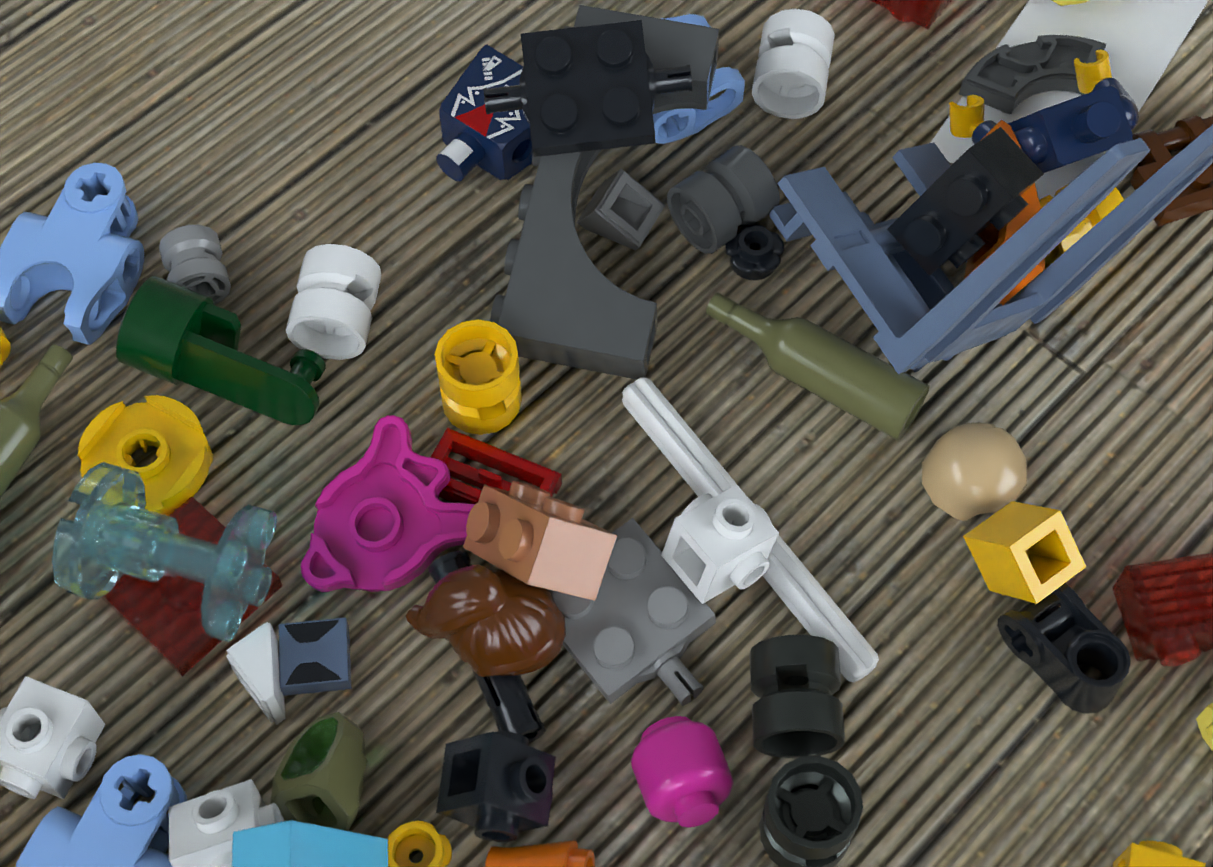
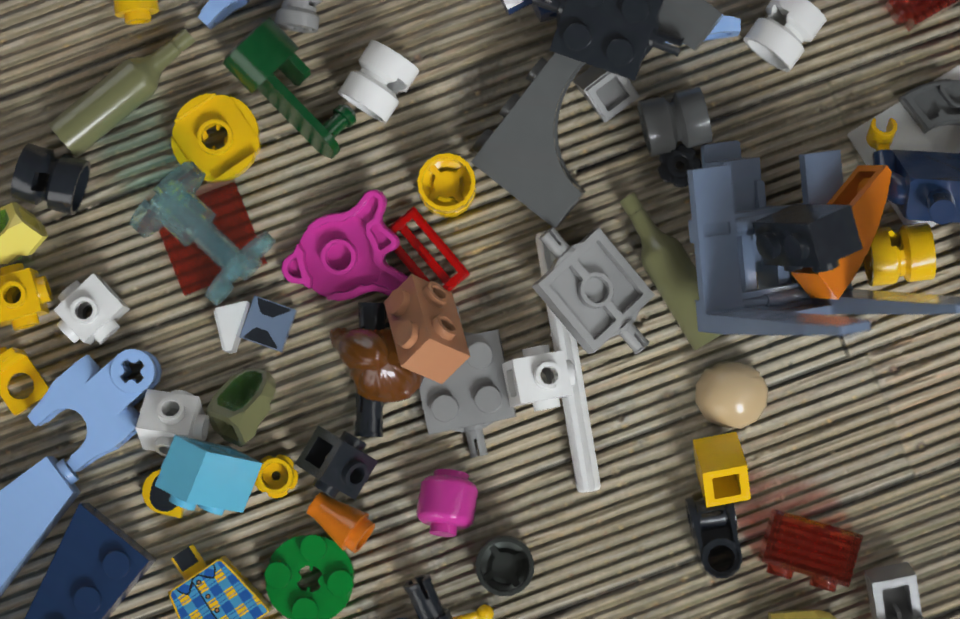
camera: 30 degrees right, 25 degrees up
(732, 417) = (593, 290): none -> light grey plate
(796, 690) = (528, 506): pearl dark grey wheel -> none

